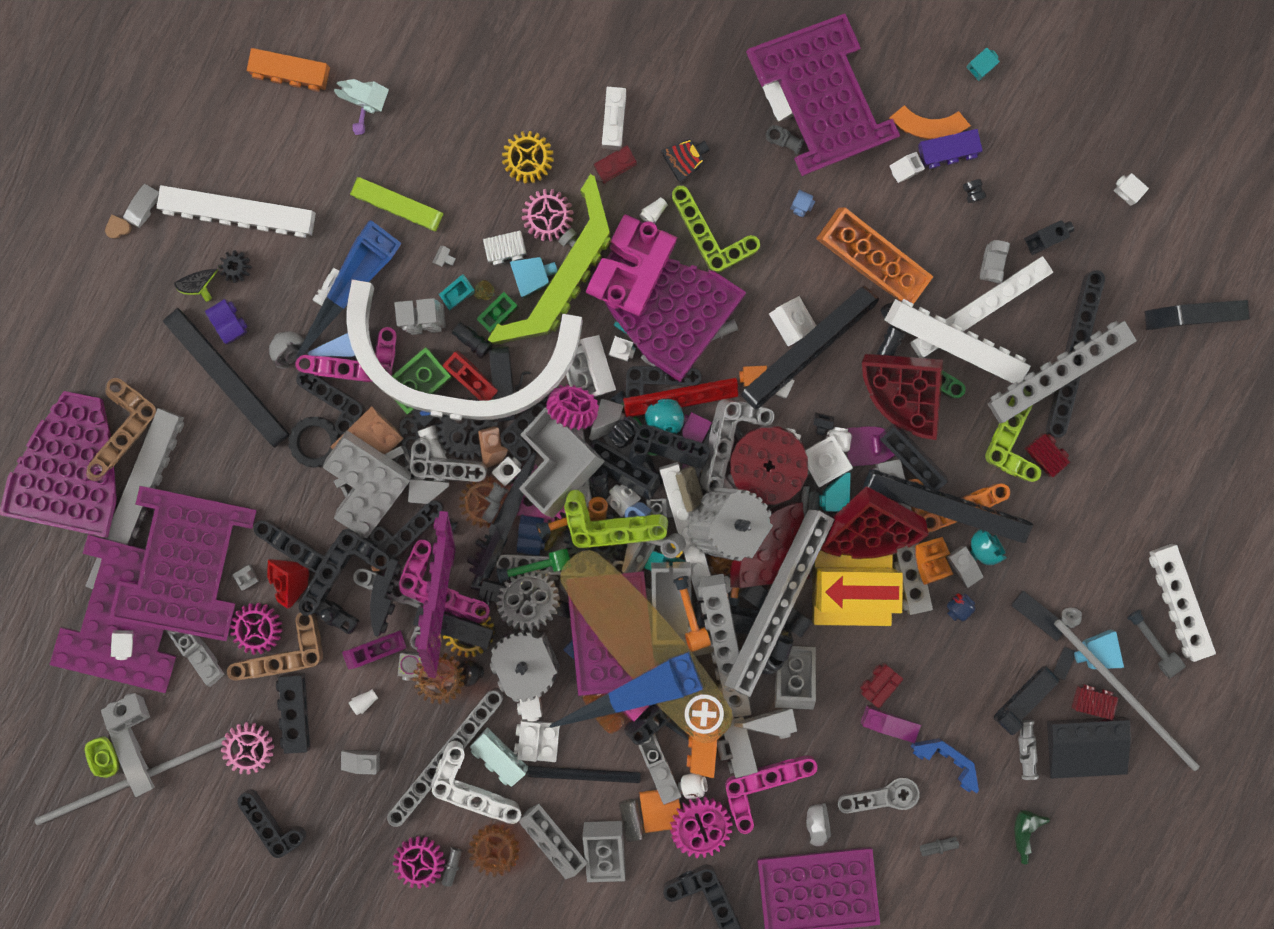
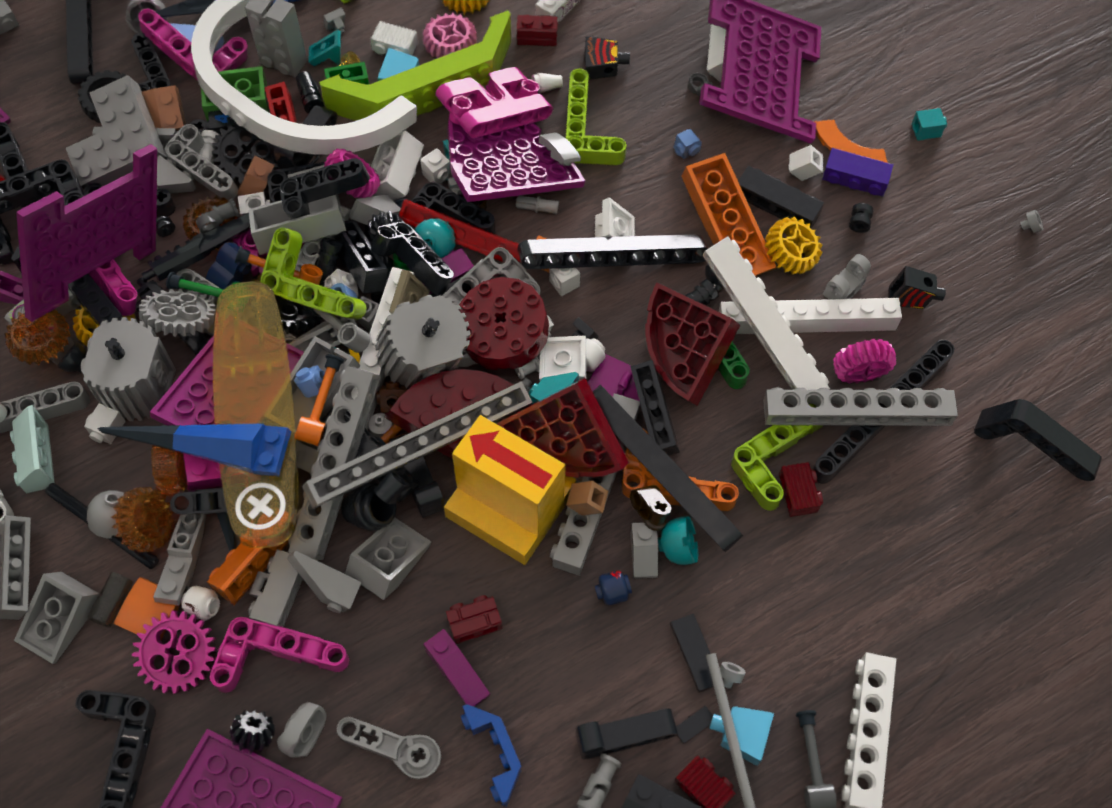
camera: 30 degrees right, 25 degrees down
(536, 741) = (83, 463): white plate -> none
(571, 442) = (319, 184): none -> black beam
(592, 773) = (100, 513): none -> light grey cylinder
(617, 759) = (143, 512): none -> clear orange gear
(670, 601) = (309, 380): none -> medium blue plate
(712, 277) = (560, 148): none -> light grey slope
(791, 851) = (252, 731): none -> black gear
(902, 212) = (778, 197): none -> black brick
(912, 562) = (587, 498): none -> medium nougat brick
(932, 560) = (614, 523): orange slope -> none
(947, 258) = (788, 251): none -> yellow gear
(956, 539) = (650, 506): none -> dark brown piece
(1044, 327) = (864, 361): none -> dark pink gear
(1108, 112) = (1033, 222): none -> light grey tile
(1130, 189) = (1023, 295): white brick -> none

